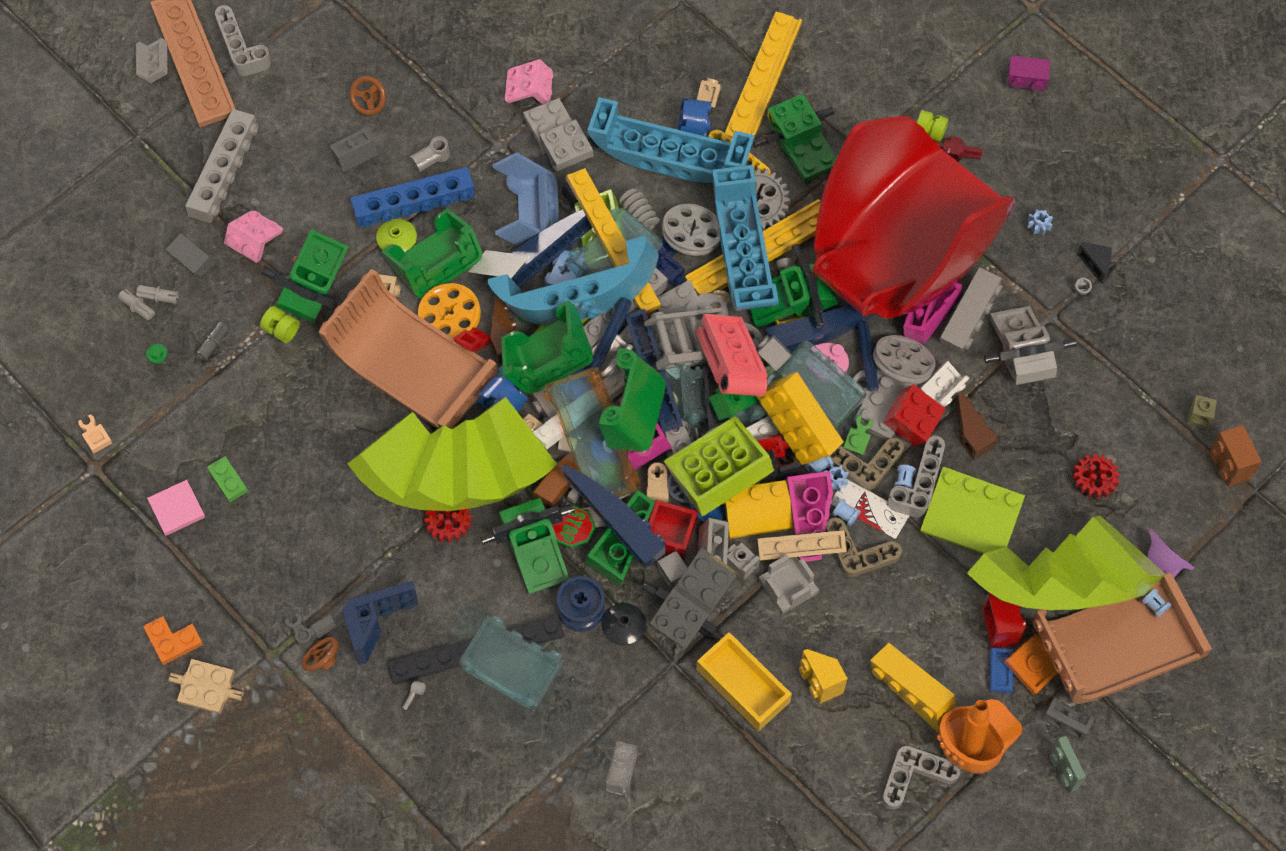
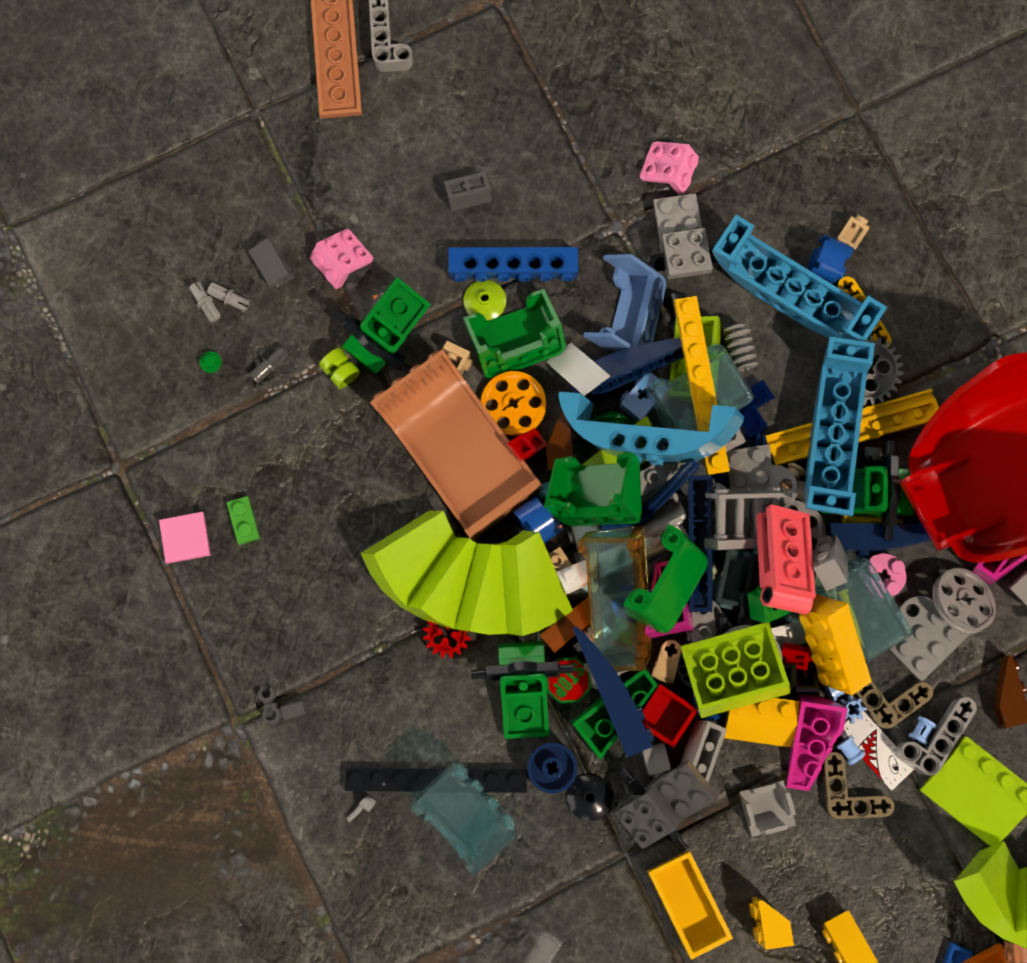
camera: 20 degrees right, 15 degrees up
(95, 435) = (127, 436): light nougat plate -> none
(151, 60) = (291, 29): light grey bracket -> none
(170, 645) = (140, 681): orange plate -> none
(205, 187) = (356, 127): light grey brick -> none
(206, 686) = (163, 737): tan plate -> none
(323, 657) = (284, 745): dark orange piece -> none
(363, 611) = (327, 734): dark blue bracket -> none
(376, 91) = (508, 131): dark orange piece -> none
(430, 154) = (542, 219): light grey piece -> none
(683, 229) = (779, 385): light grey wedge -> none
(742, 566) = (728, 779): light grey brick -> none
(764, 75) = (917, 228): yellow plate -> none
(799, 136) = (934, 309): green piece -> none
(802, 545) = (793, 775): tan plate -> none
(858, 439) = (887, 672): bright green plate -> none
(867, 356) = (927, 584): dark blue axle -> none
(914, 415) = (954, 667): red piece -> none
(944, 384) = (996, 640): white bracket -> none
(1003, 622) = (968, 929): red piece -> none

